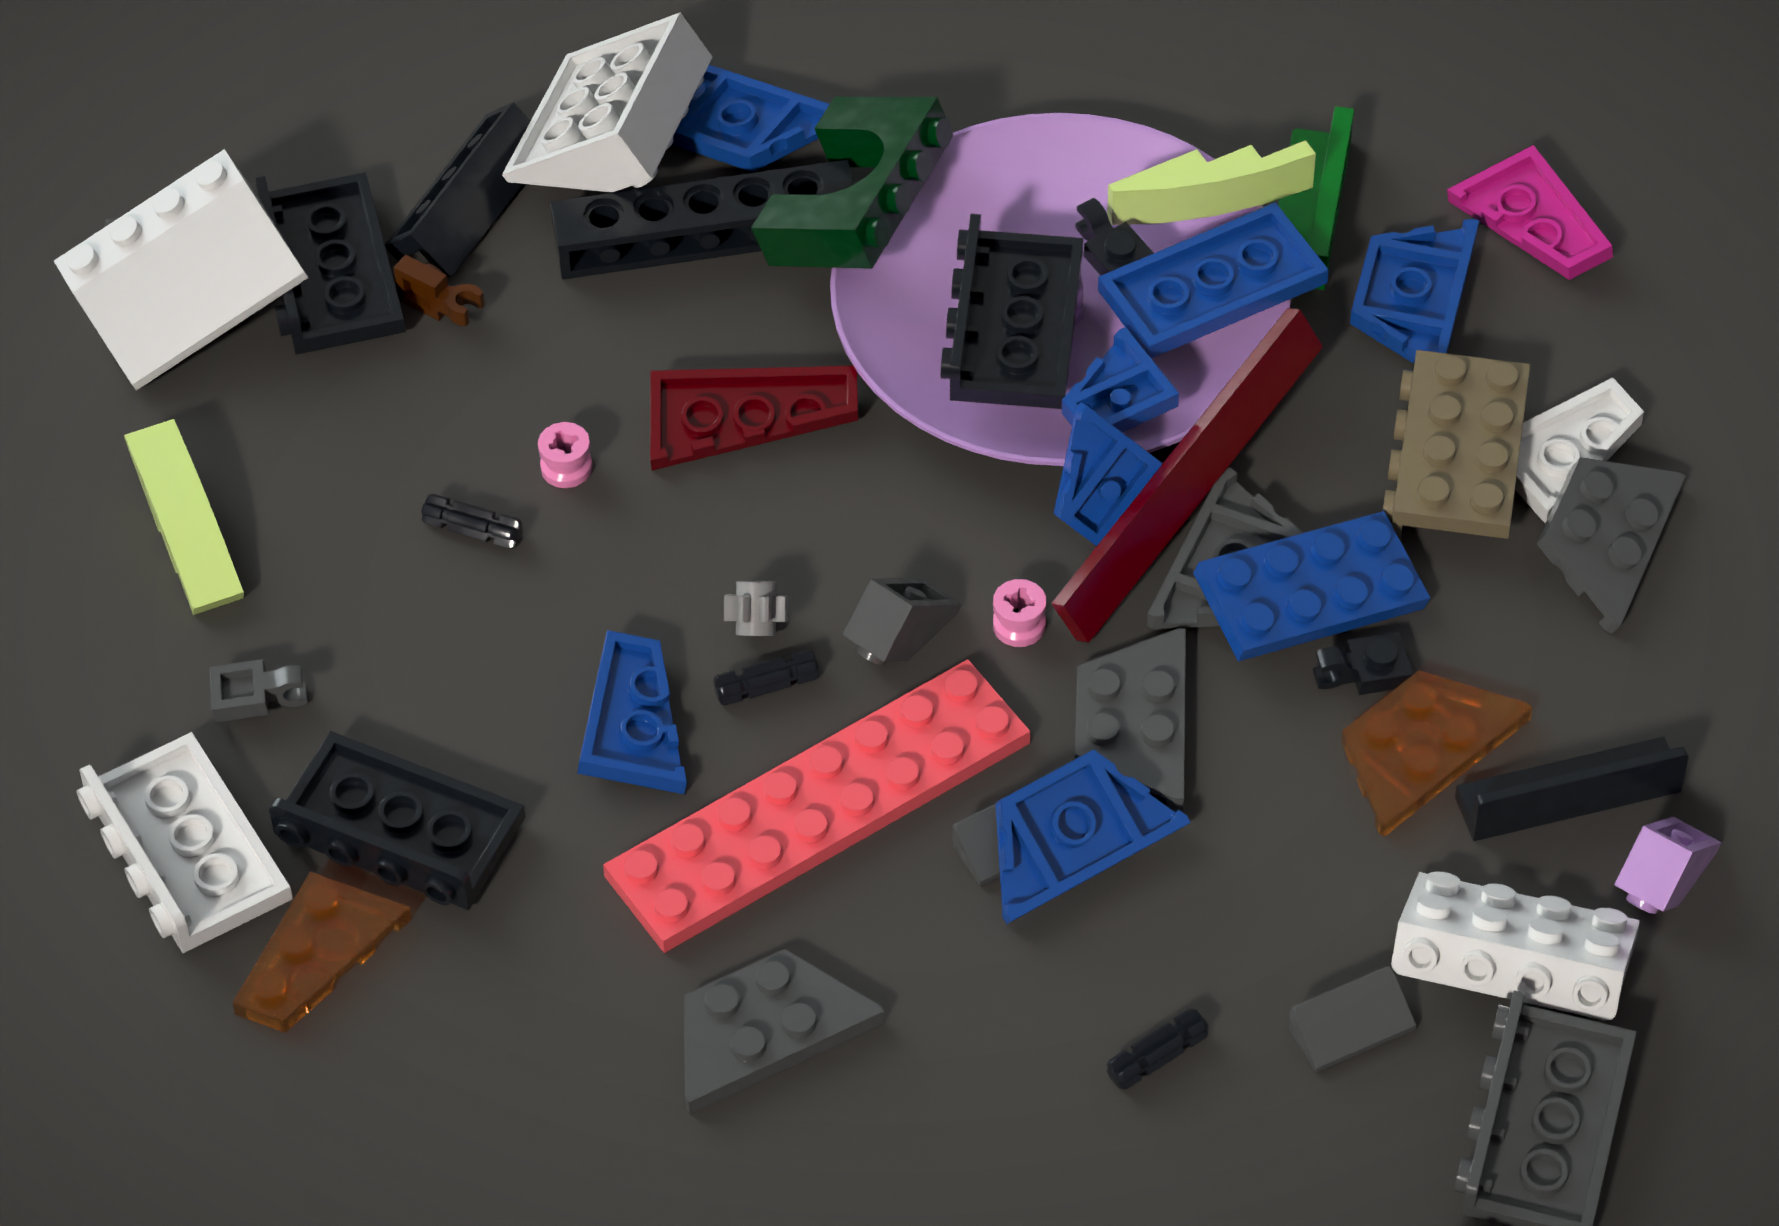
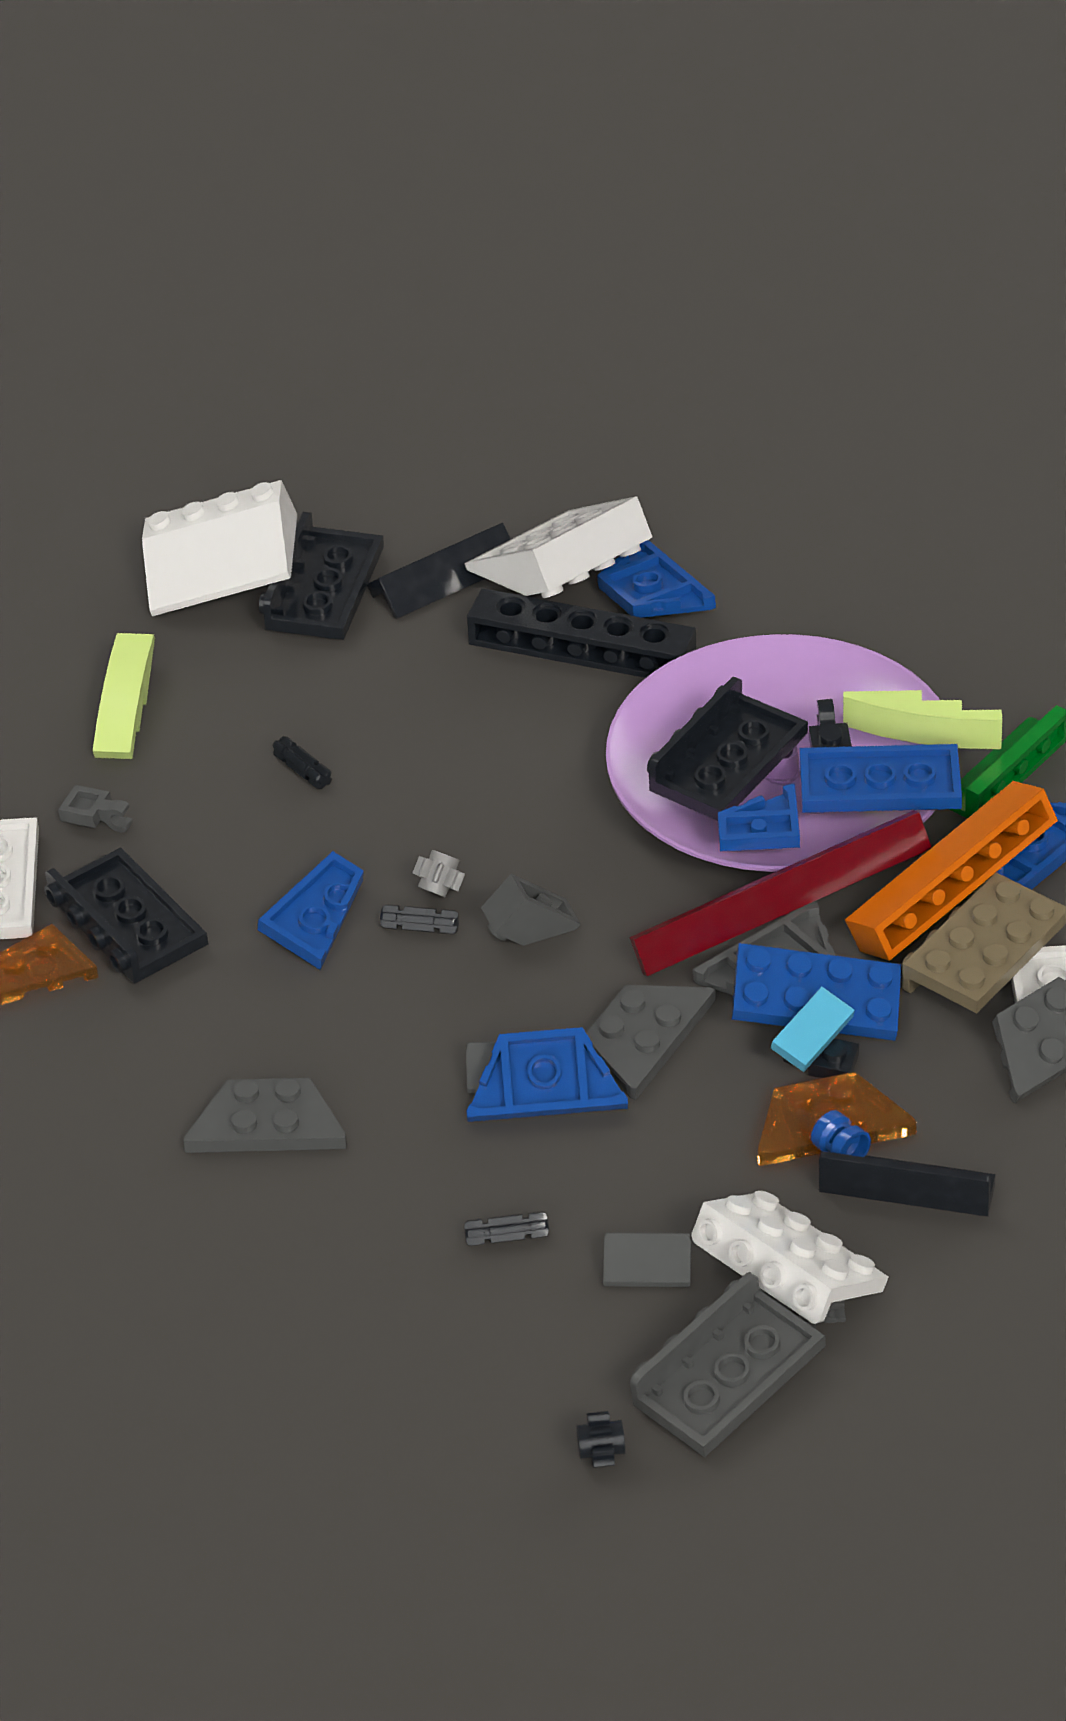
camera: 30 degrees right, 10 degrees down
(428, 291) = (373, 619): reddish brown plate -> none
(560, 468) = (387, 744): bright pink wheel -> none
(738, 408) = (520, 755): dark red wing -> none
(815, 805) = (398, 1005): coral plate -> none
(855, 224) = (721, 625): dark green arch -> none
(1029, 623) = (611, 940): bright pink wheel -> none
(1100, 475) = (716, 866): blue wing -> none
(1350, 638) = (812, 1029): none -> medium azure tile
(1366, 368) = (951, 870): none -> orange brick
(1477, 766) = (836, 1135): none -> blue wheel
(1665, 864) = (933, 1248): lavender slope -> none

